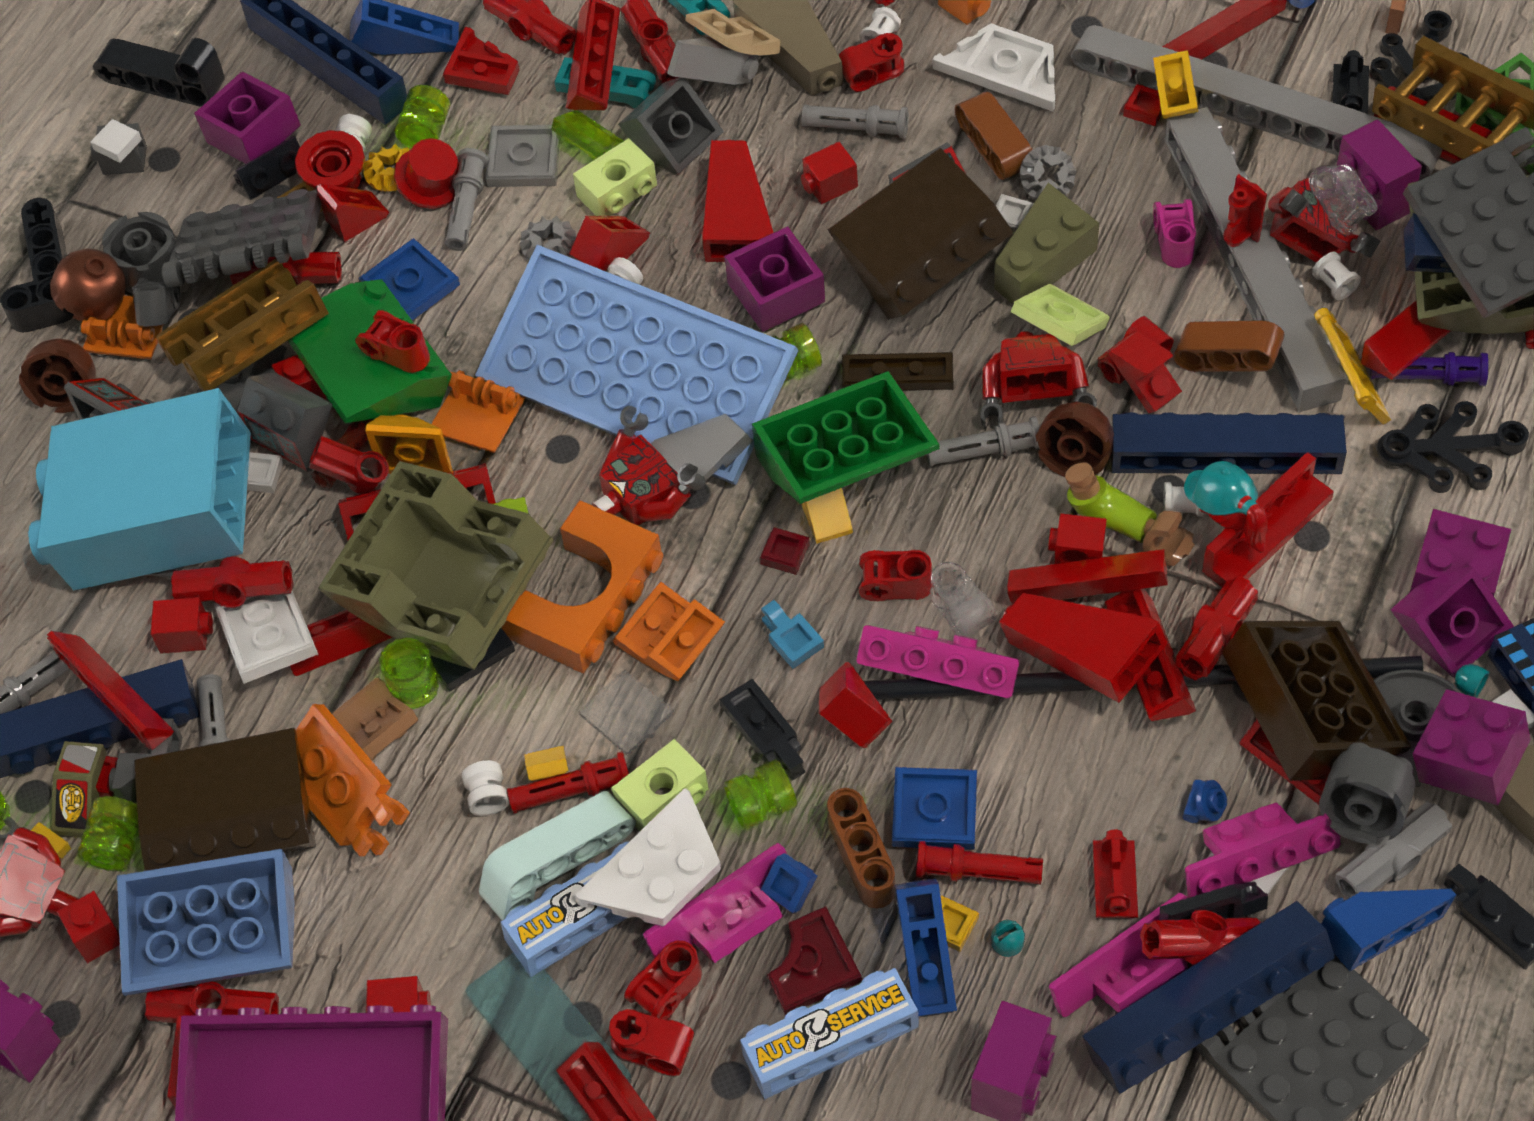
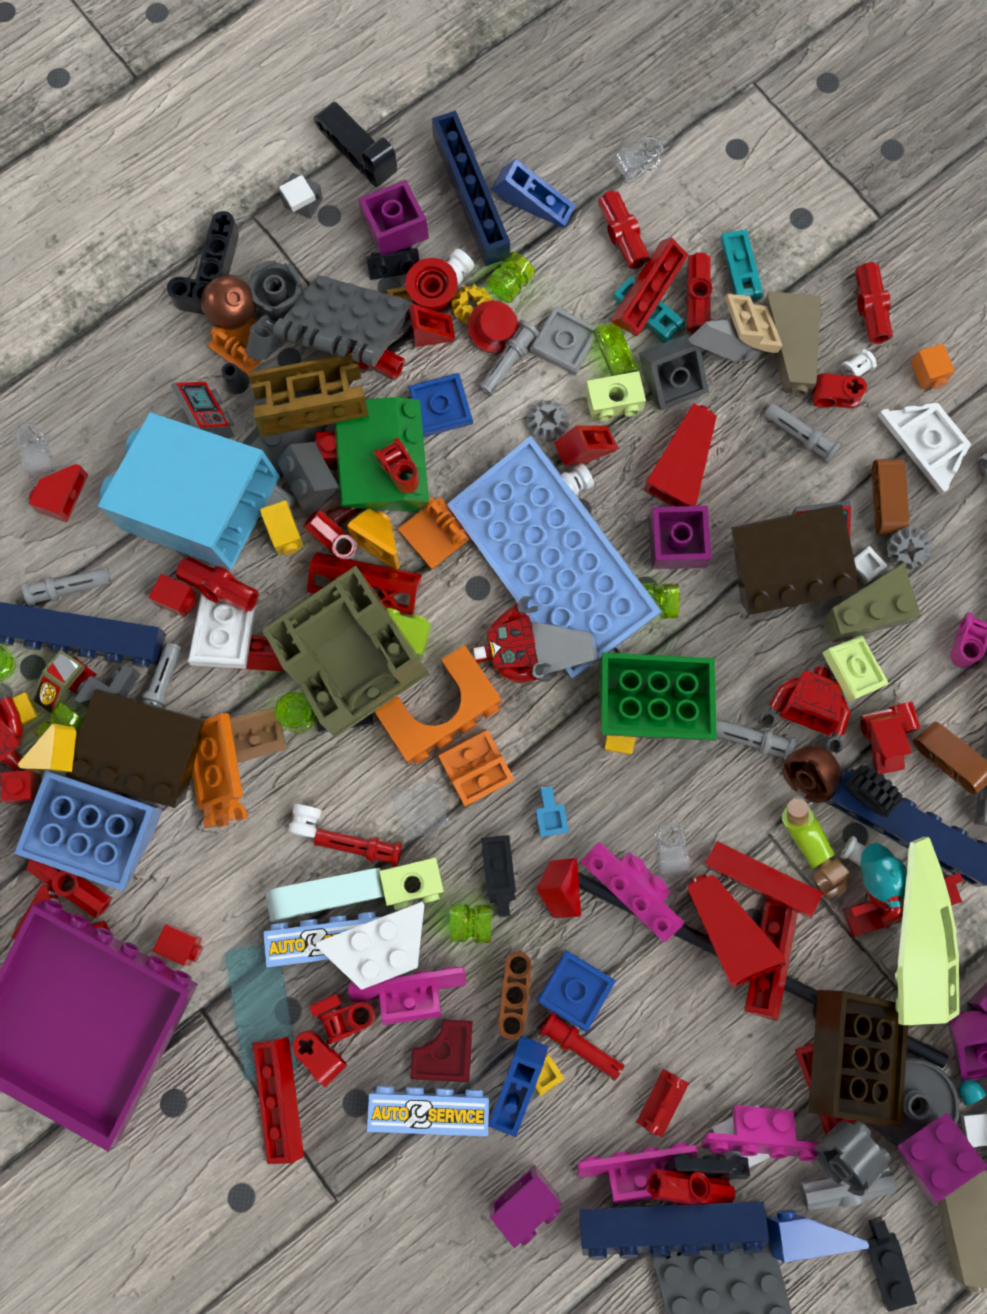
camera: 20 degrees right, 20 degrees up
(50, 368) = (180, 359): copper cylinder -> none
(110, 688) = (103, 628): red slope -> none
(114, 847) = (52, 751): none -> yellow slope
(136, 363) = (235, 379): none -> black cone
(282, 484) = (282, 528): none -> yellow slope
(480, 65) = (571, 251): red wing -> none
(546, 763) = (350, 823): yellow tile -> none
(624, 974) = (326, 1004): none -> red tile
(784, 550) = (580, 746): dark red tile -> none
(789, 882) = (457, 997): blue tile -> none
(829, 173) = (761, 468): red brick -> none
(893, 575) = (638, 805): red piece -> none
(909, 370) = (725, 649): dark brown tile -> none
(1010, 944) = (573, 1098): teal hinge -> none
(1077, 538) = (772, 848): red brick -> none
(1153, 407) = (874, 791): none -> black tyre
(1205, 802) = (749, 1081): blue plate -> none
(1216, 627) = (826, 966): red piece -> none
(1315, 535) = (928, 943): none -> yellowish green wedge

